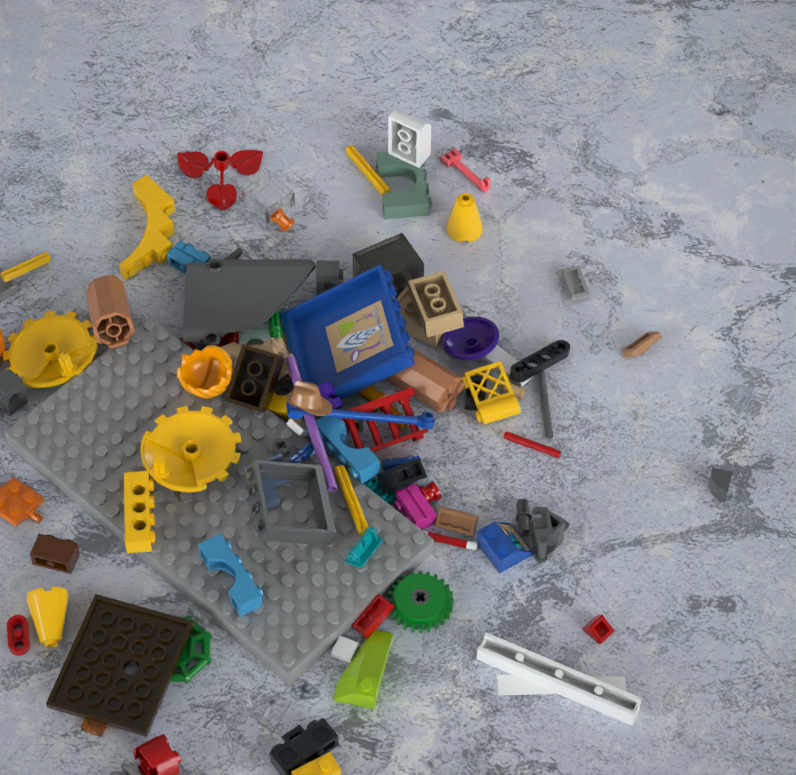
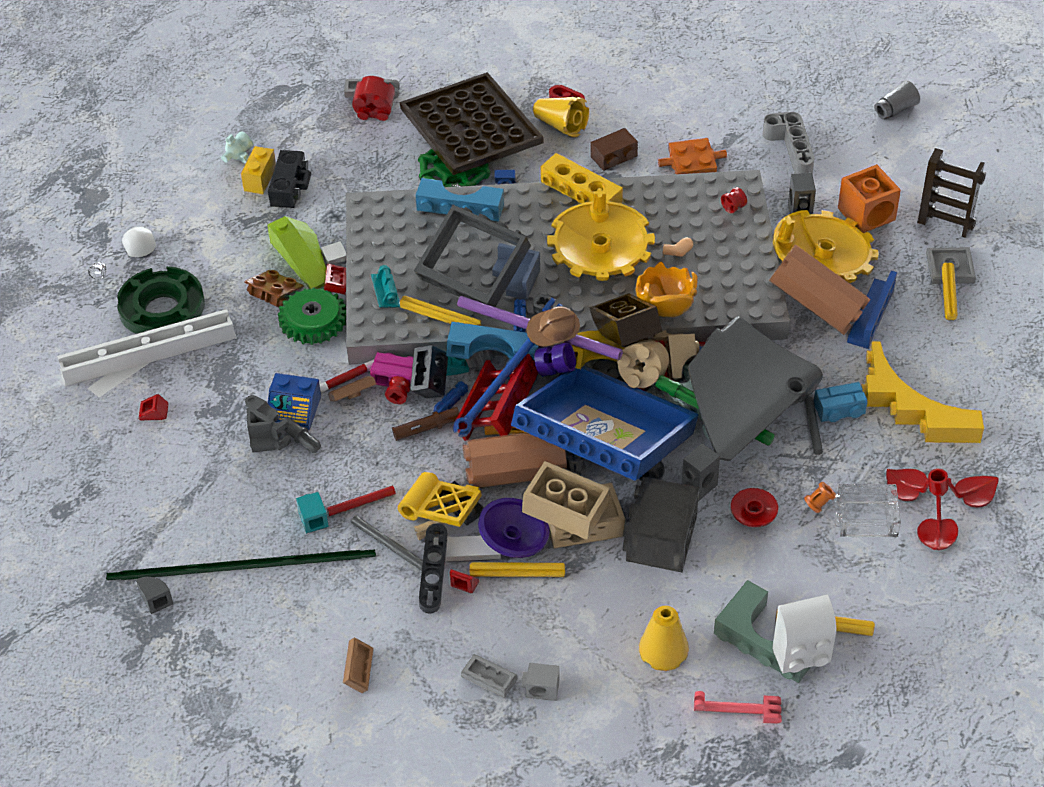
camera: 135 degrees right, 5 degrees down
(65, 409) = (734, 200): none -> red wheel
(70, 301) = (868, 322): none -> blue fence
(144, 409) = (678, 249): none -> light nougat arm
(156, 598) = (505, 176): none -> blue tile
(322, 246) = (754, 500): none -> red dish
(417, 655) = (272, 287): none -> dark orange hinge
(437, 457) = (427, 423): none -> reddish brown pin
(504, 337) = (516, 569): none -> yellow axle
(511, 688) = (150, 285): none -> dark green piece
(527, 343) = (463, 581): none -> red slope
(551, 256) = (541, 681): none -> light grey brick
(572, 456) = (312, 512): none -> teal brick
(649, 468) = (241, 564): none -> dark green piece

